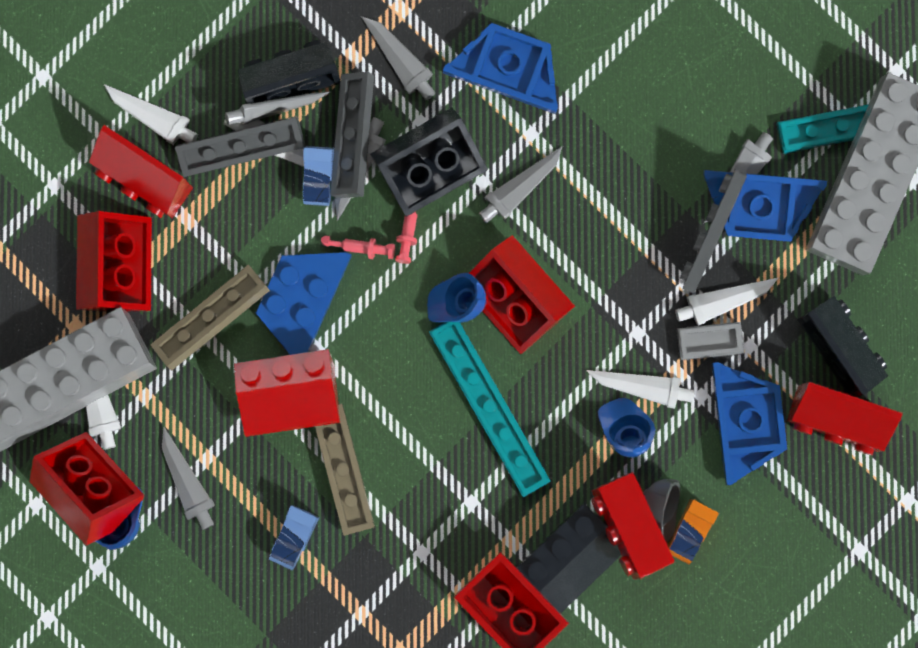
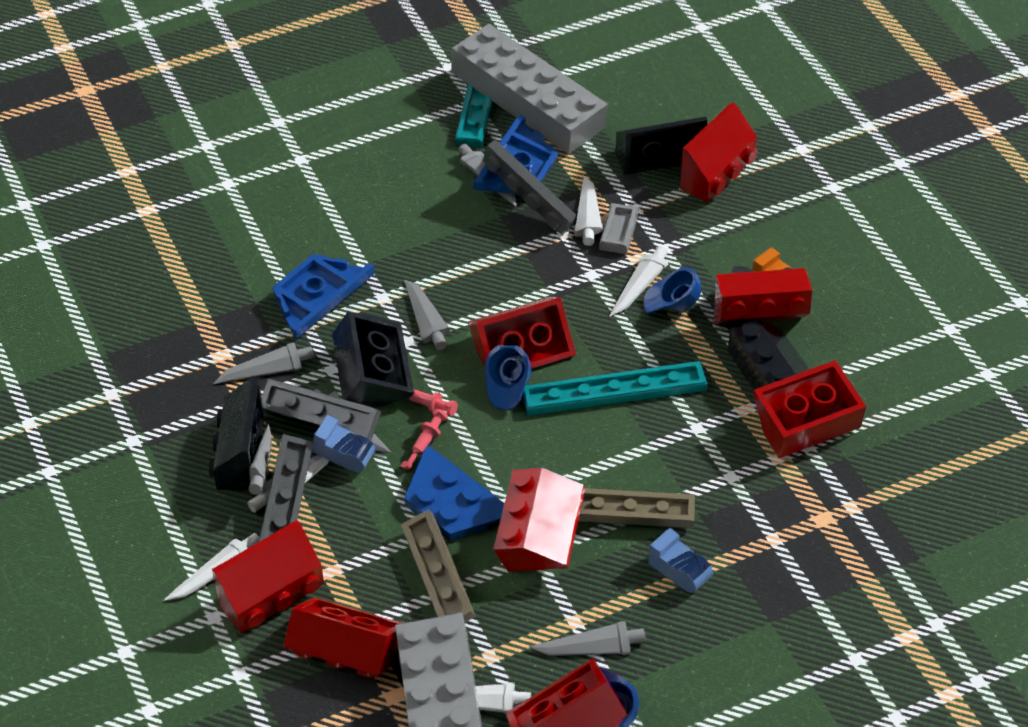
camera: 75 degrees left, 35 degrees down
(747, 421) = (697, 219): blue wing -> none

